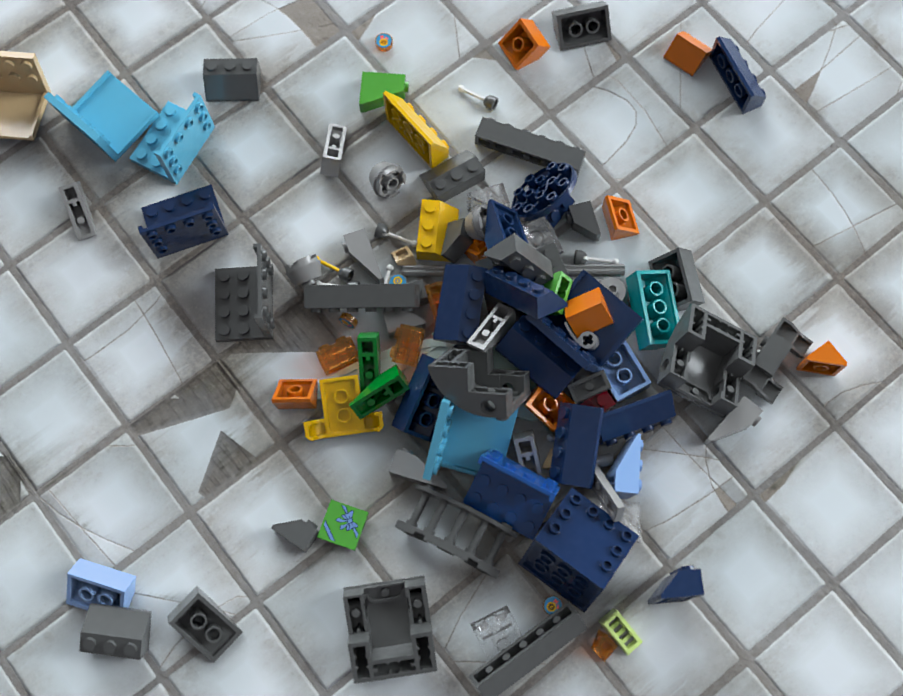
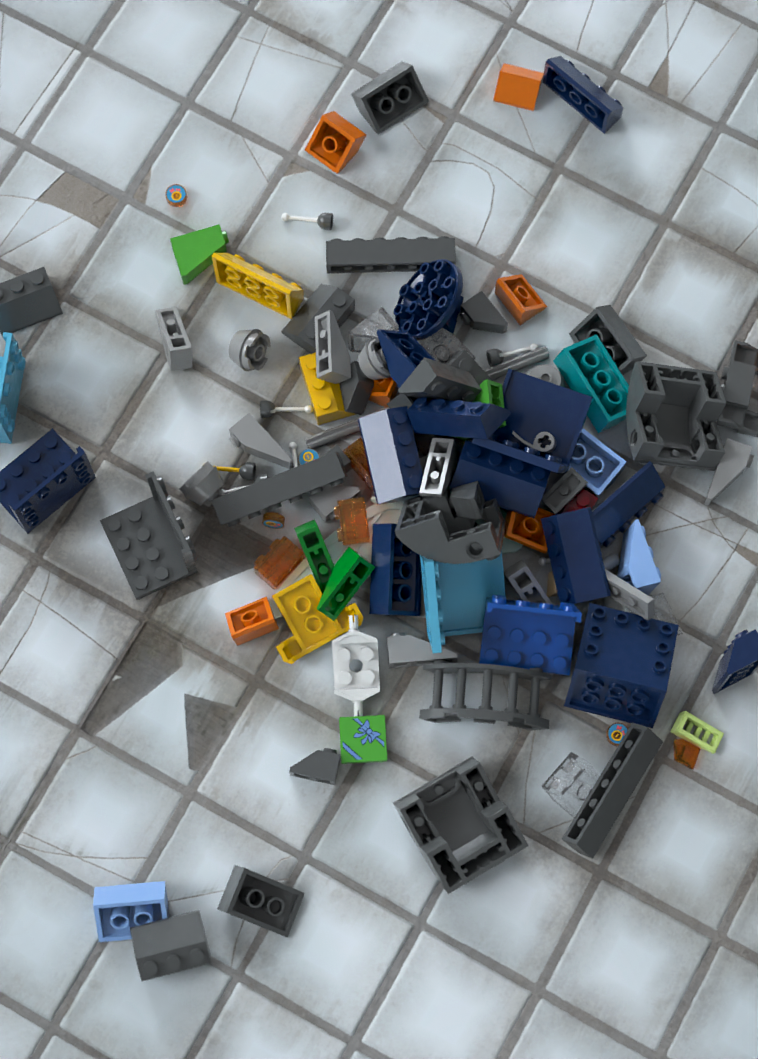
camera: 25 degrees left, 0 degrees up
(354, 477) = (351, 684): none -> white plate
(404, 257) = (303, 428): tan slope -> none
(447, 205) = (331, 352): none -> light grey slope
(504, 364) = (467, 500): none -> dark grey slope
(588, 312) = (532, 412): orange slope -> none

